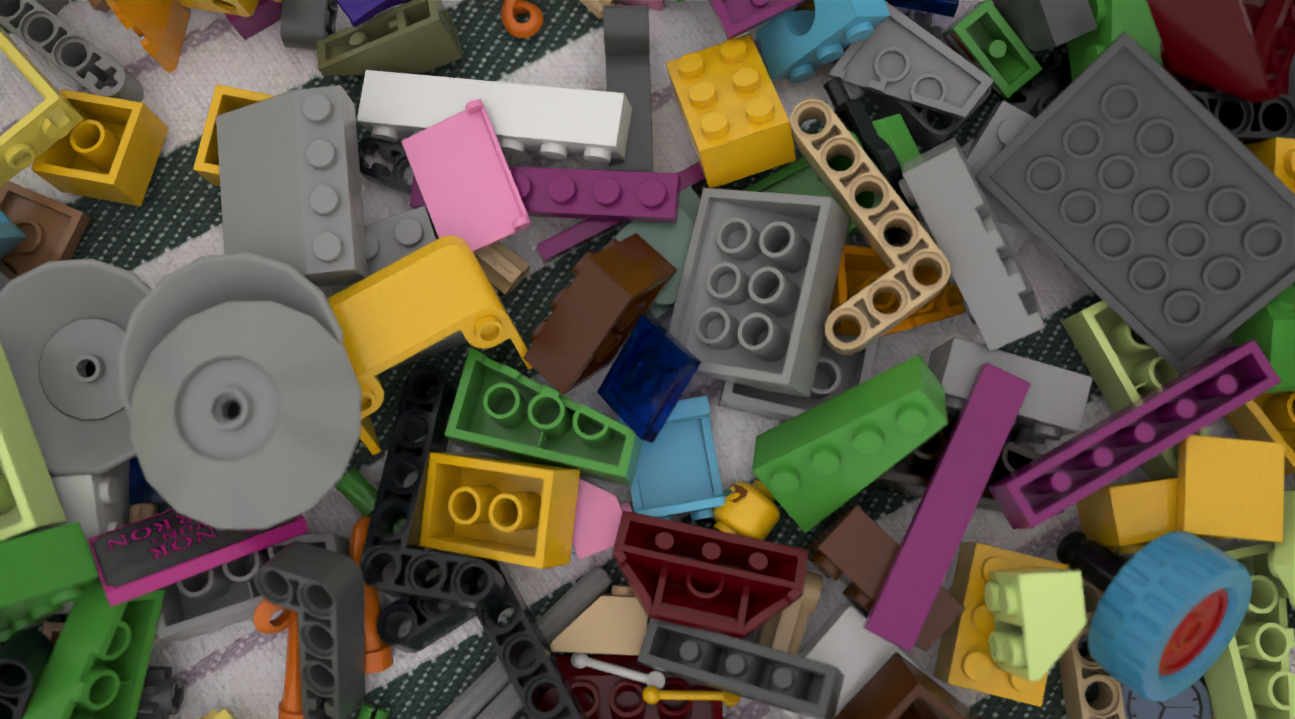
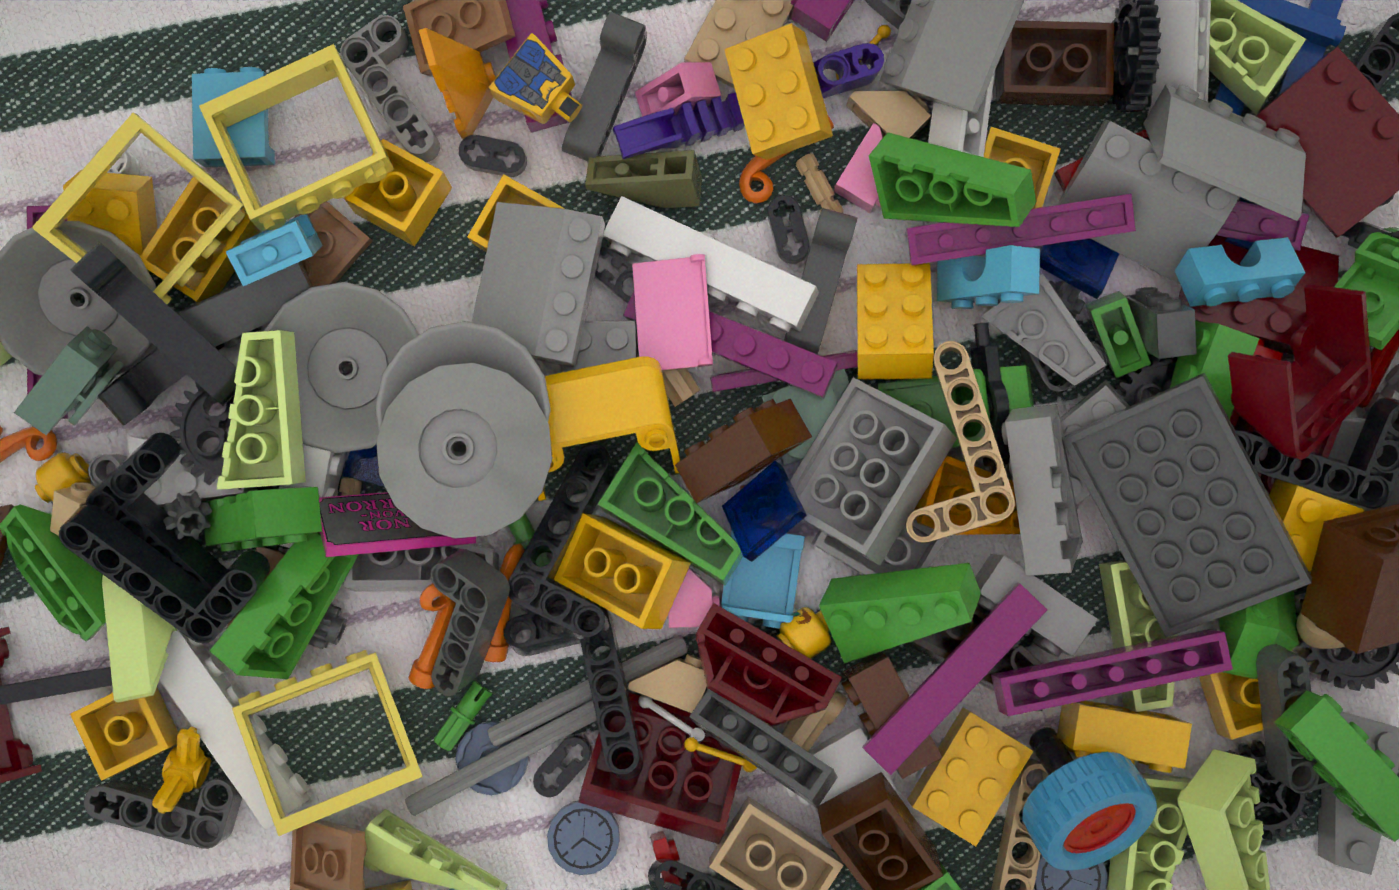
camera: 25 degrees right, 5 degrees up
(206, 74) = (493, 147): none -> black beam
(582, 50) = (796, 227): none -> black beam
(1034, 617) = (989, 779): yellowish green slope -> none
(1231, 488) = (1169, 734): yellow tile -> none

